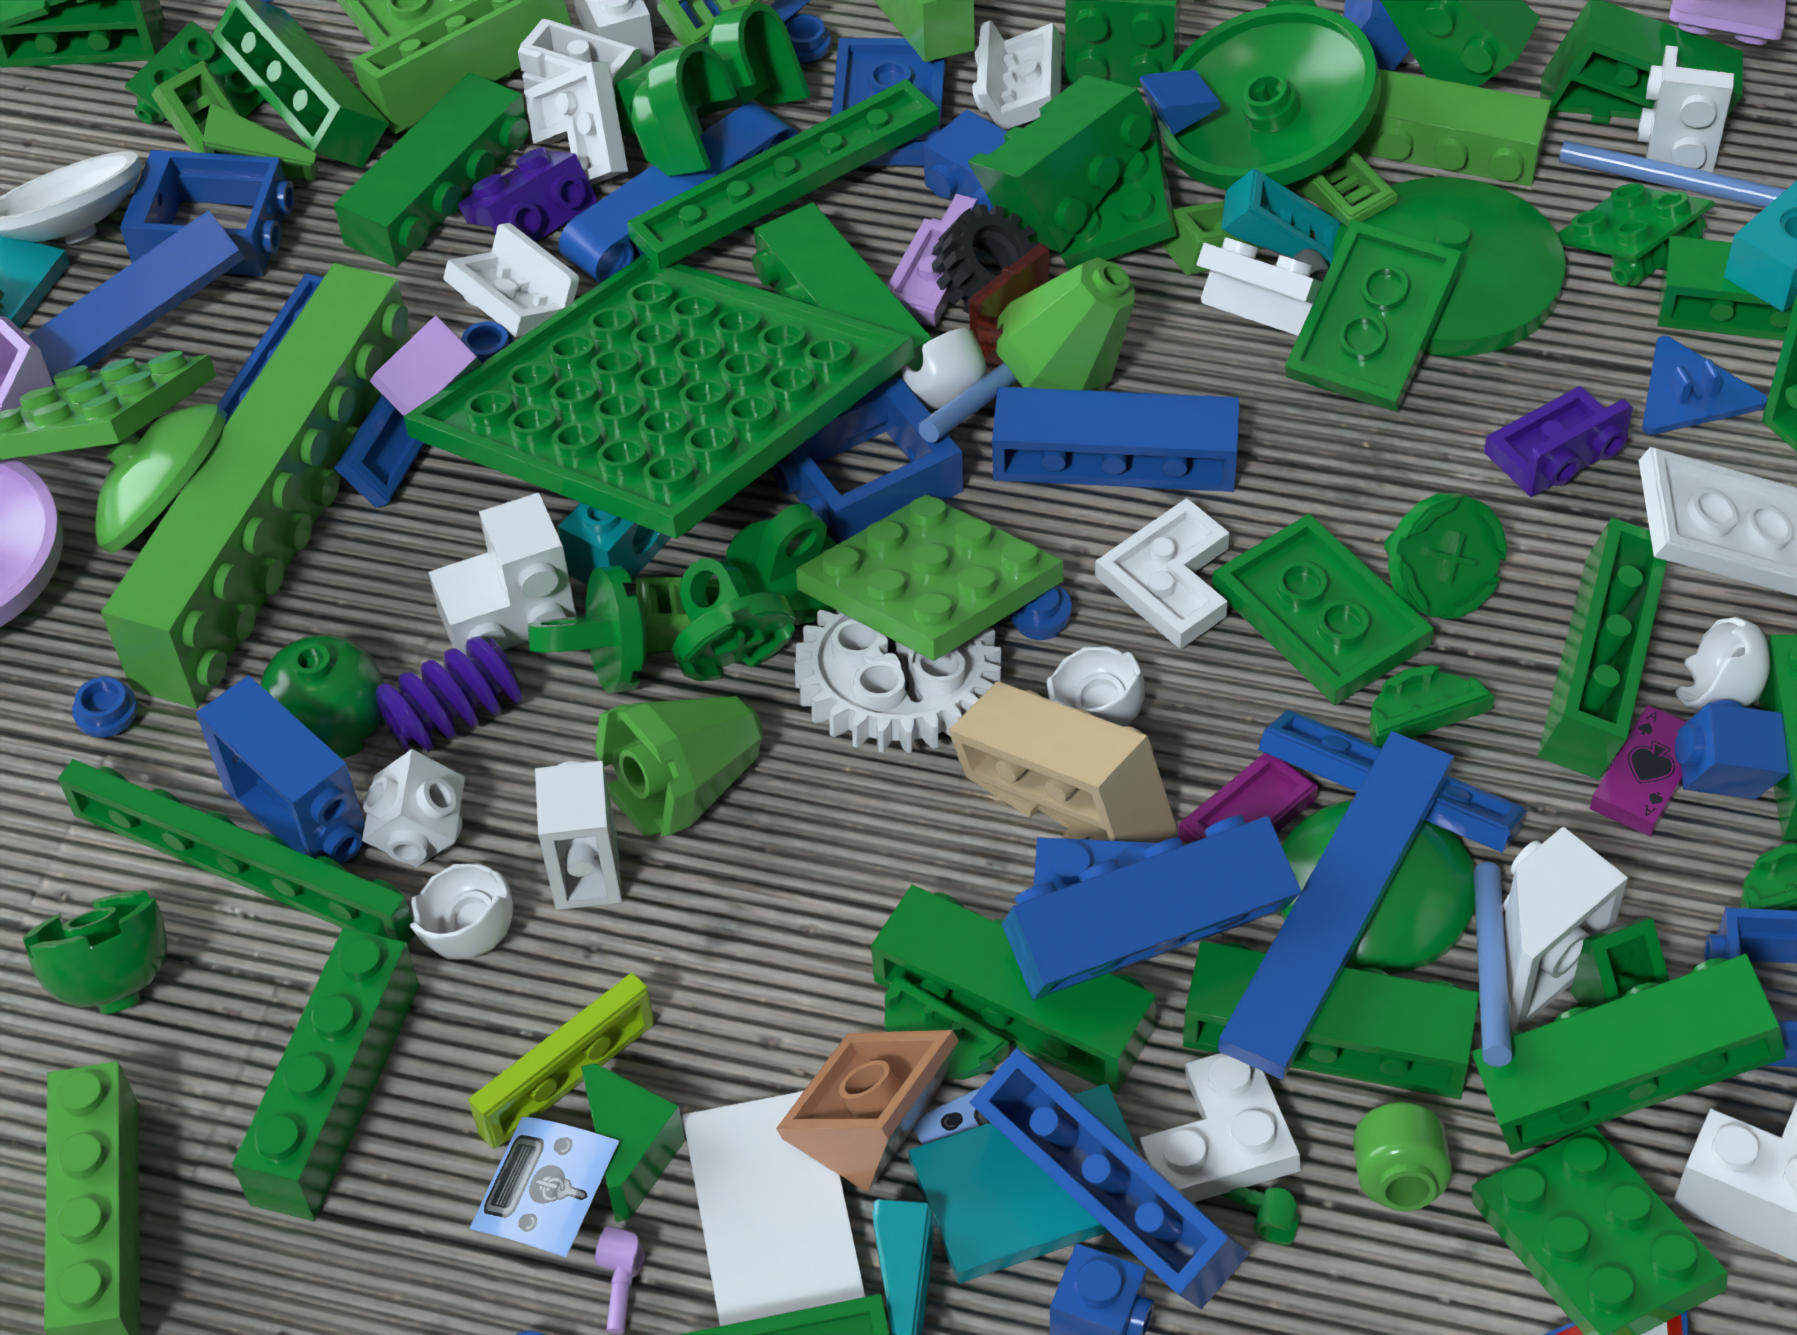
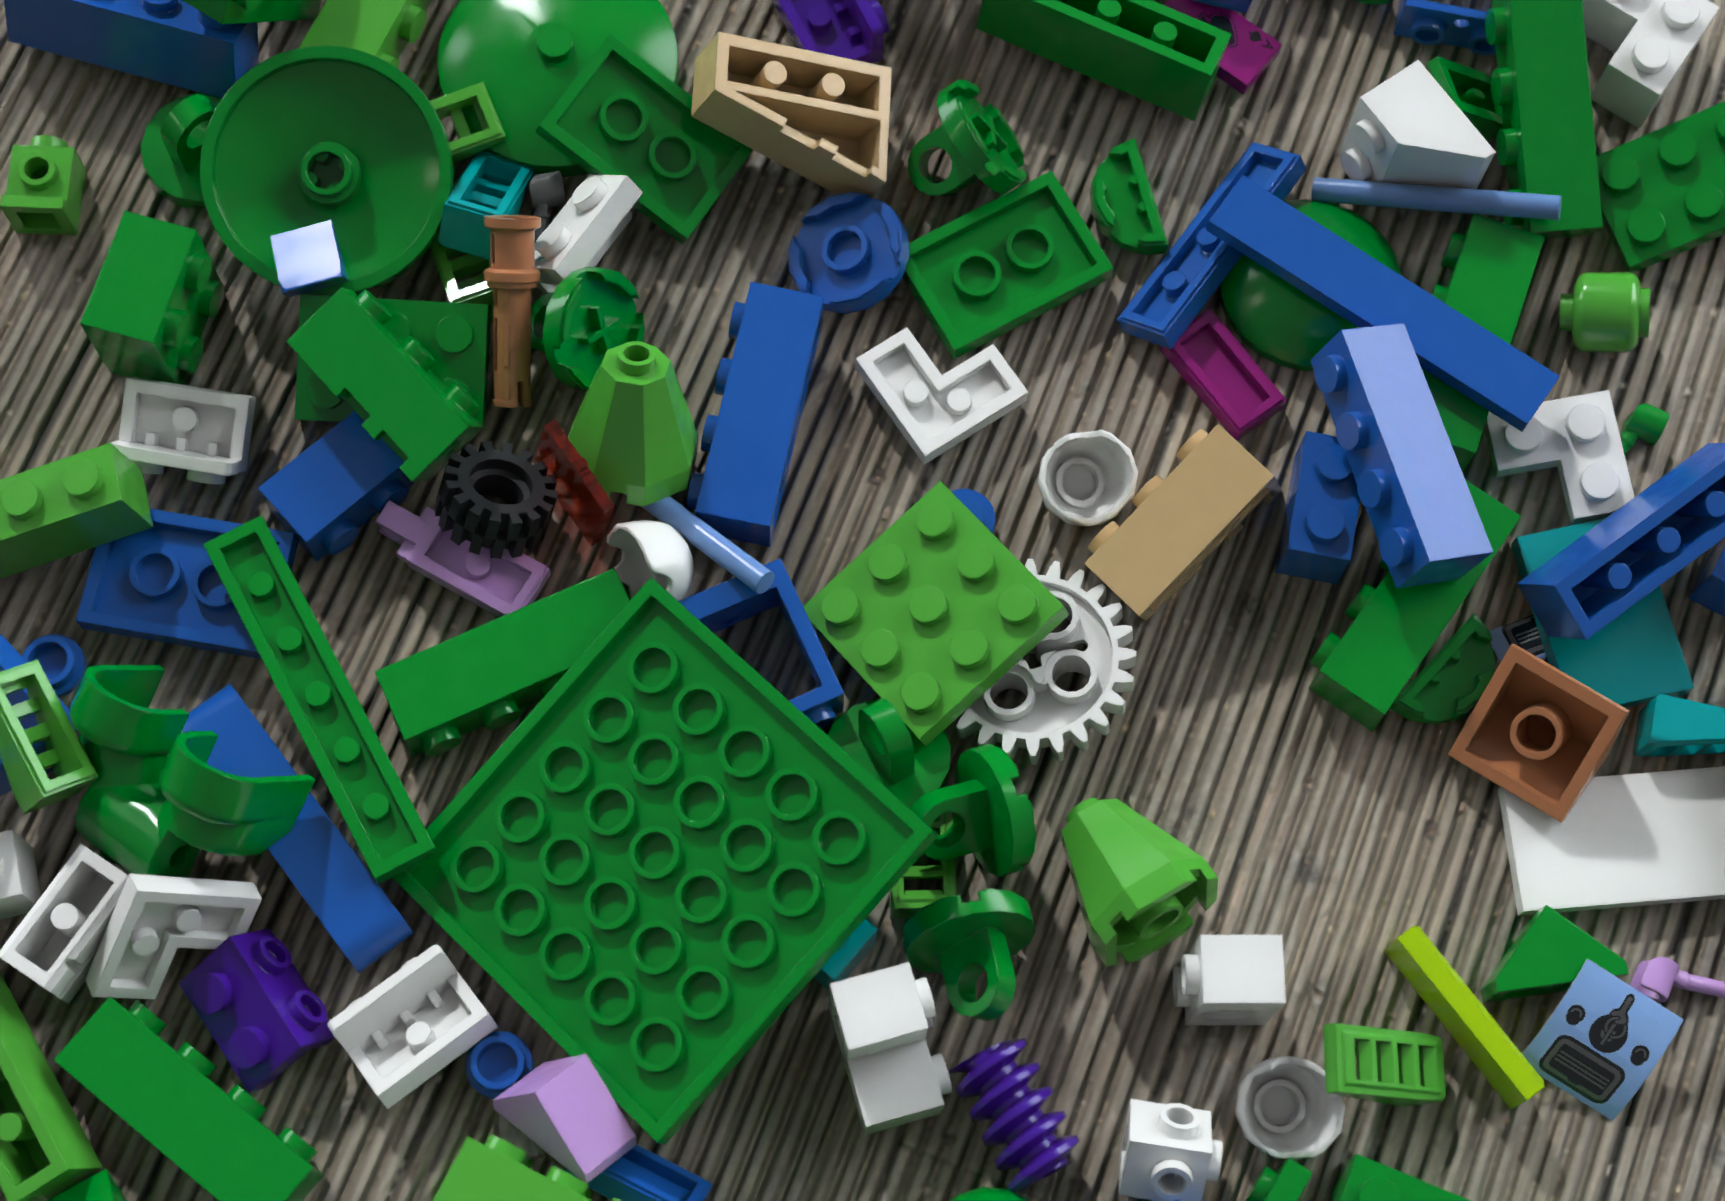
camera: 90 degrees left, 20 degrees up
(512, 1029) = (1391, 1065): none -> bright green slope
(1174, 299) = (583, 320): none -> green tile
(1191, 227) = (512, 281): none -> nougat pin
(1300, 485) = (849, 252): none -> blue tile
(1433, 409) = (798, 108): none -> tan wedge

